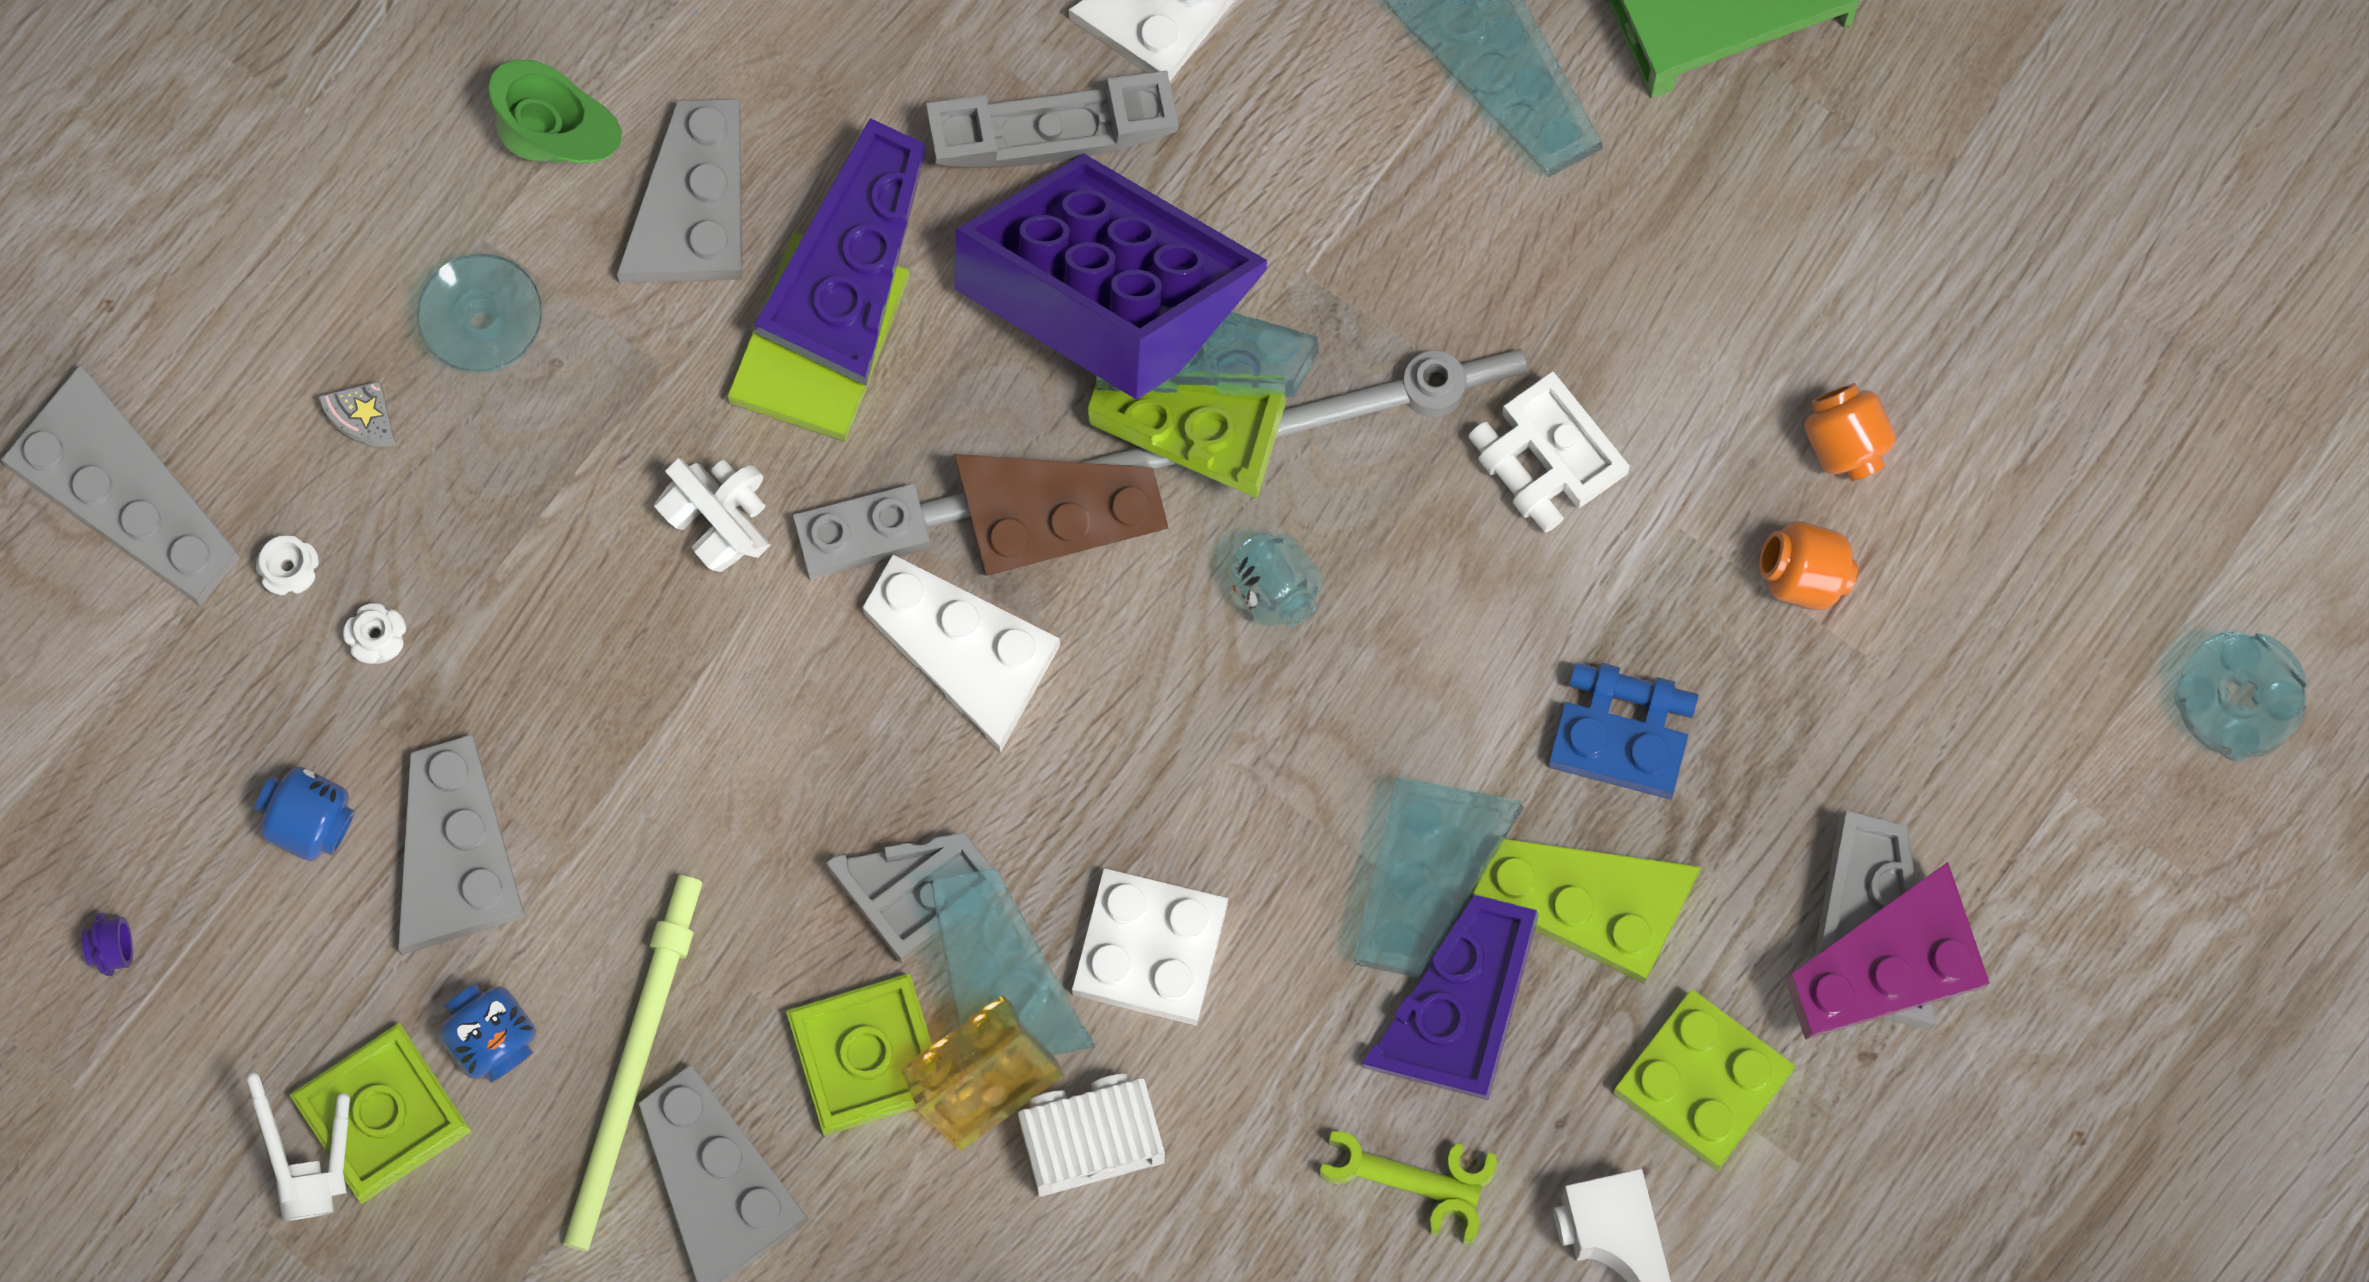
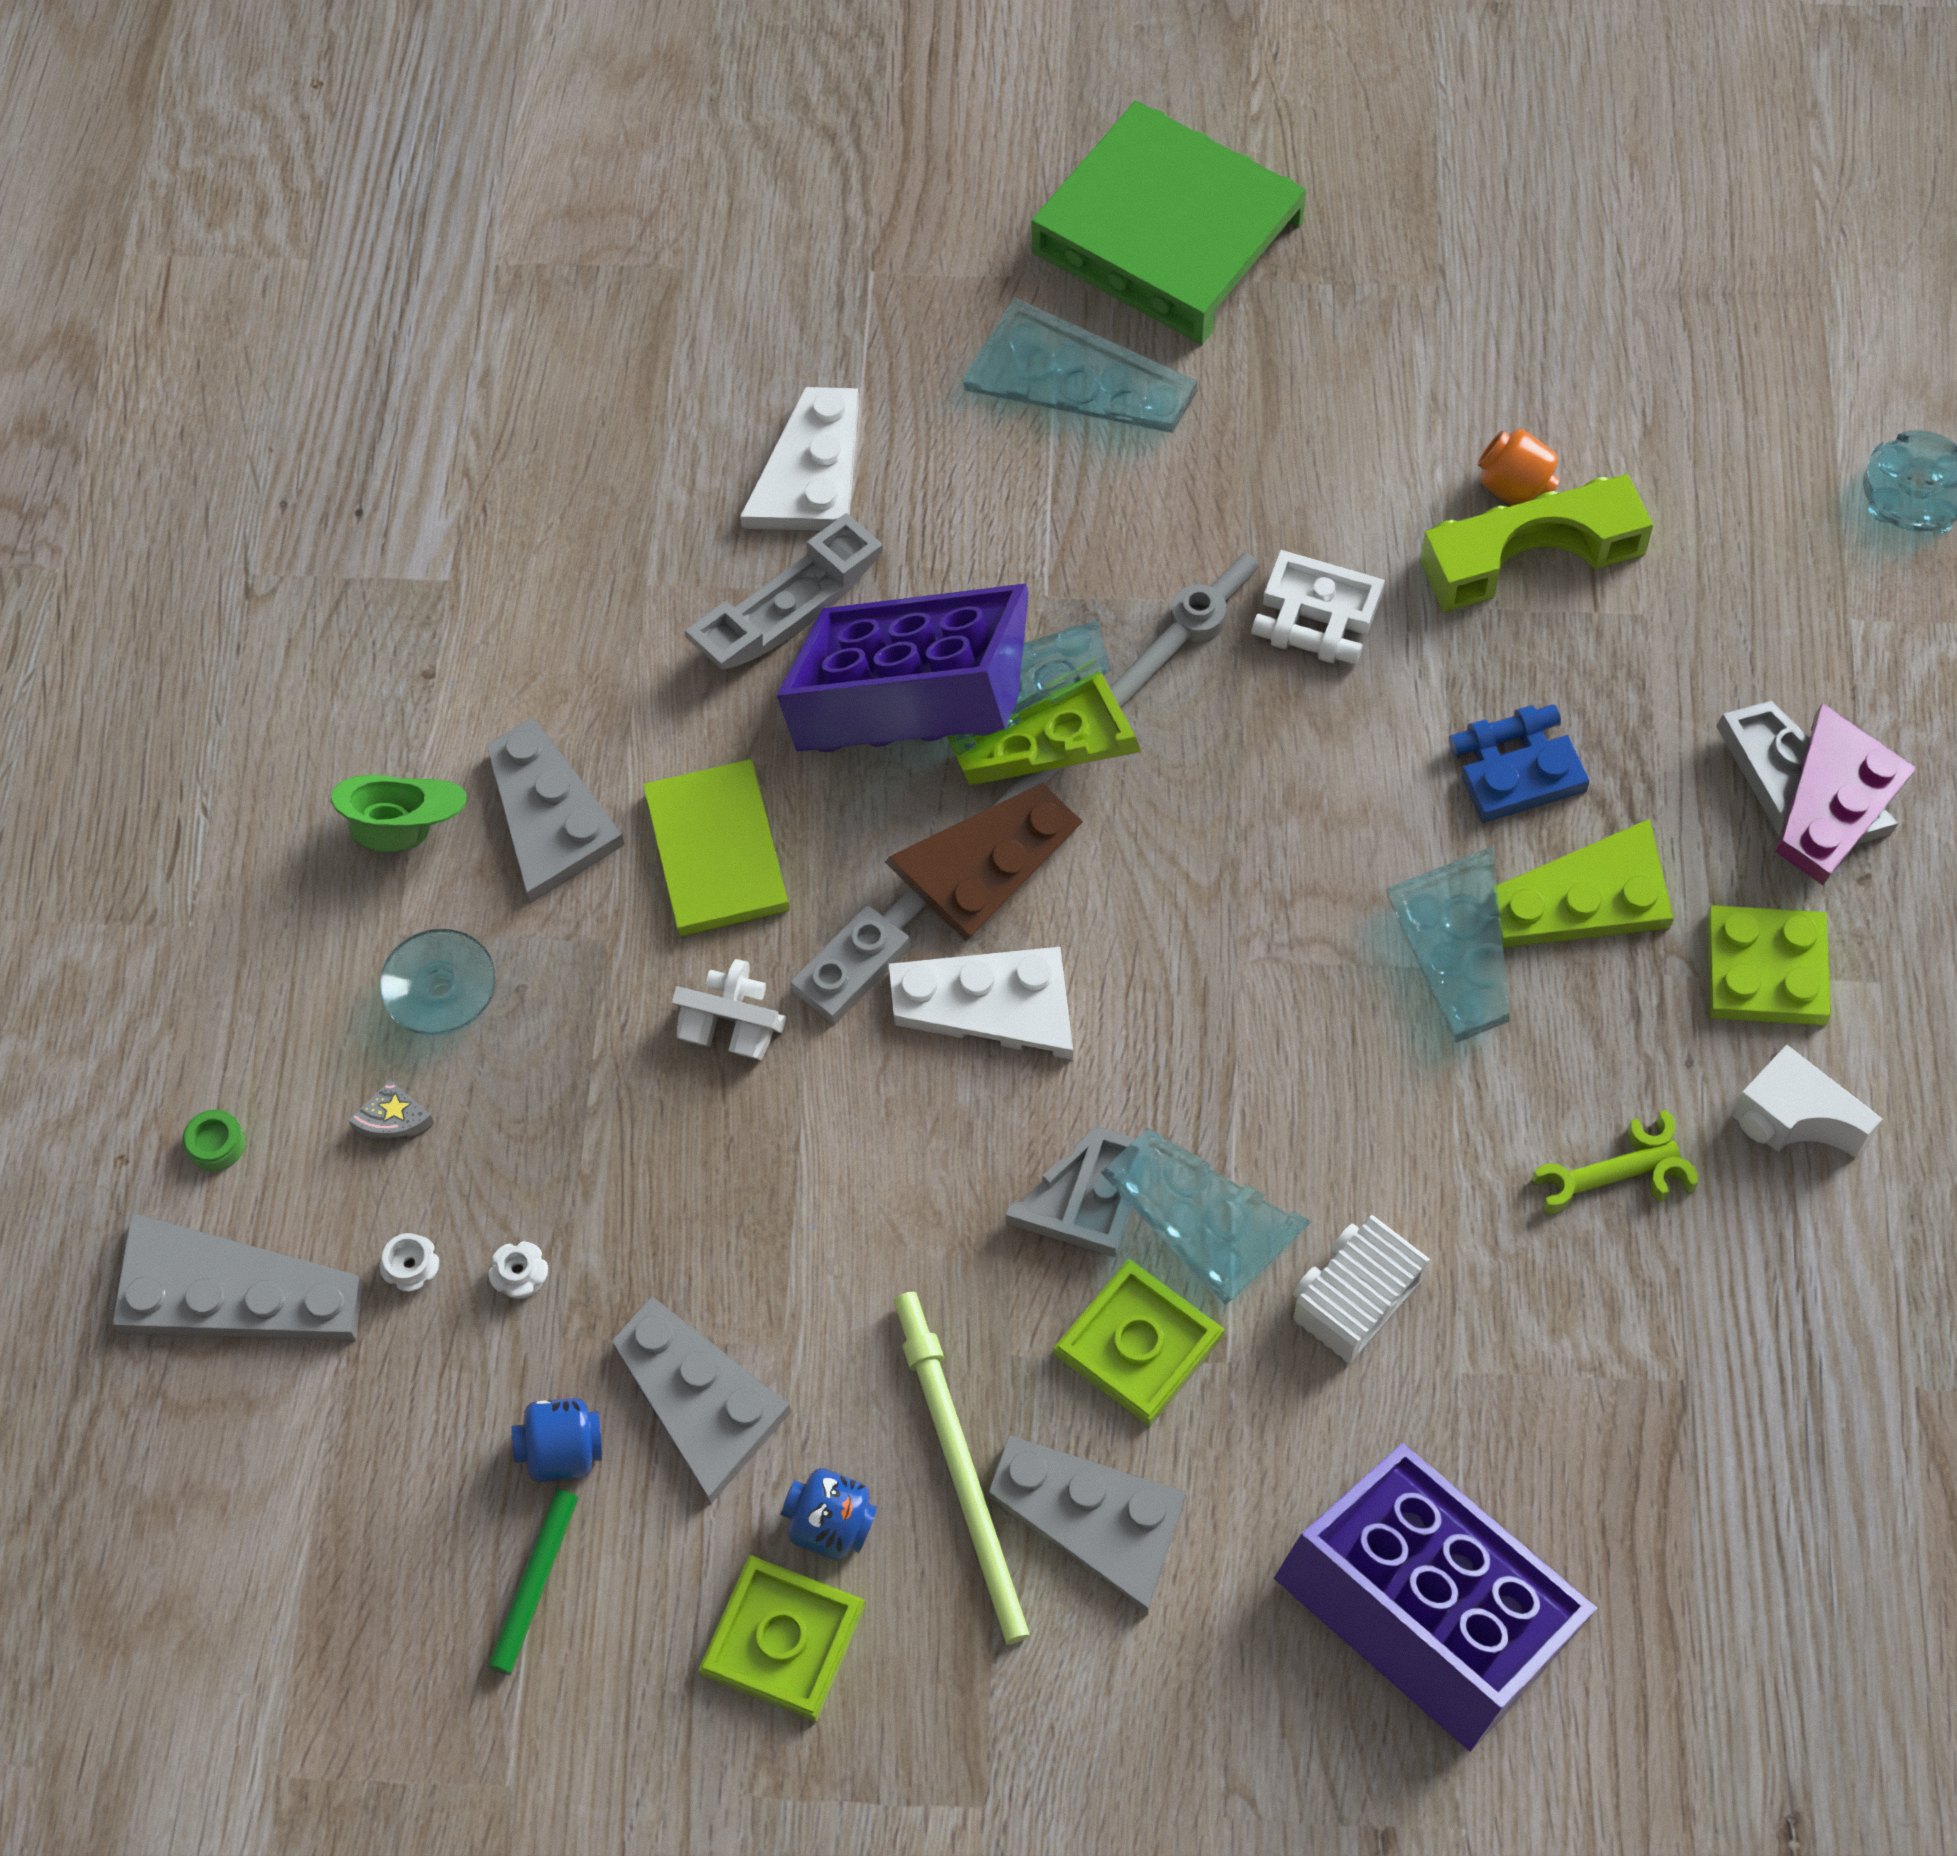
camera: 30 degrees left, 10 degrees down
(108, 944) = (461, 1648): dark purple plate -> none
(195, 338) = (214, 1140): none -> bright green tile
(206, 925) = (533, 1582): none -> green bar
(302, 1186) = (761, 1737): white plant -> none
(846, 263) = (705, 785): dark purple wing -> none
(980, 1074) = (1244, 1291): clear yellow bracket -> none
(1150, 947) = (1294, 1125): white plate -> none
(1275, 580) = (1191, 808): clear light blue head -> none
(1463, 1005) = (1558, 1018): dark purple wing -> none
(1735, 492) = (1595, 521): none -> lime arch
(1808, 565) = (1561, 571): orange head -> none

